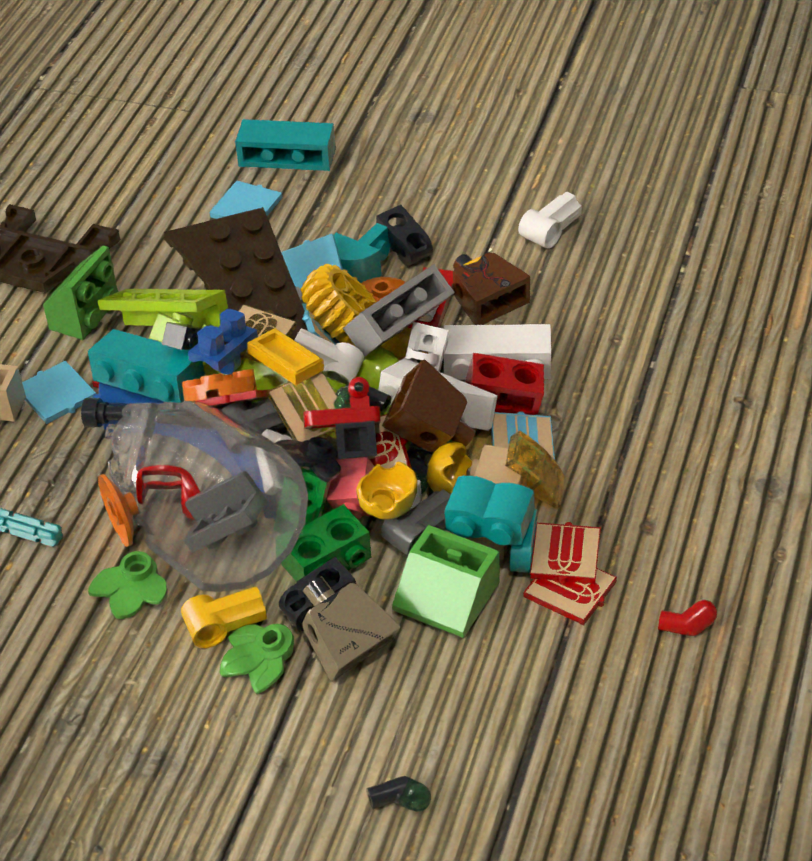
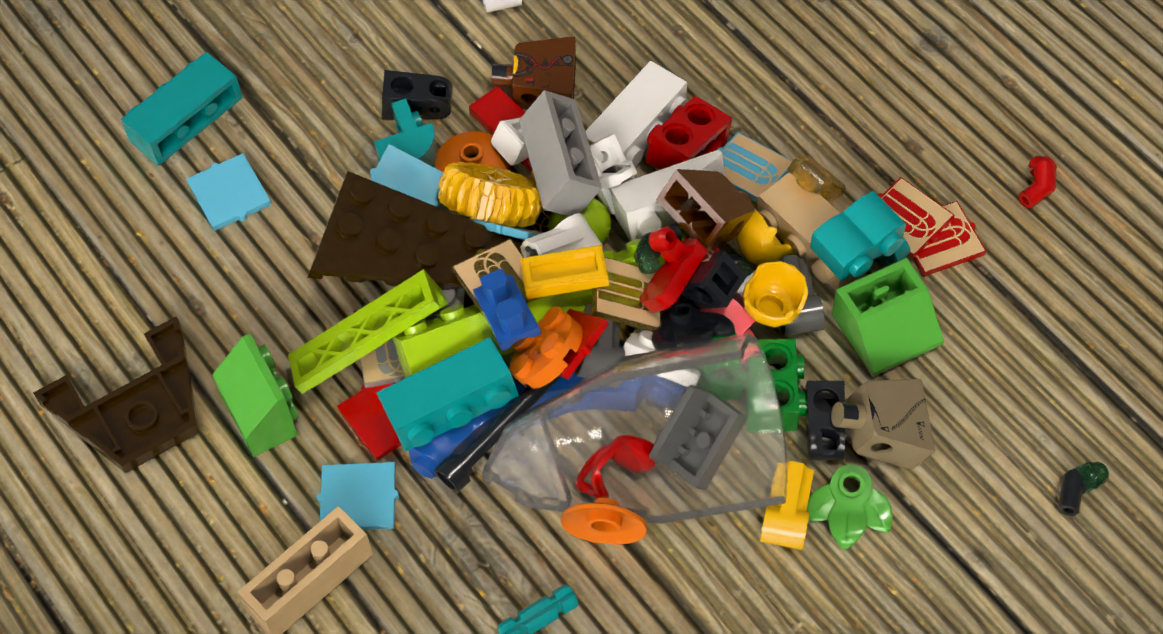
camera: 55 degrees left, 15 degrees up
(130, 585) = (691, 569): bright green plate -> none
(180, 336) = (465, 336): piece -> none

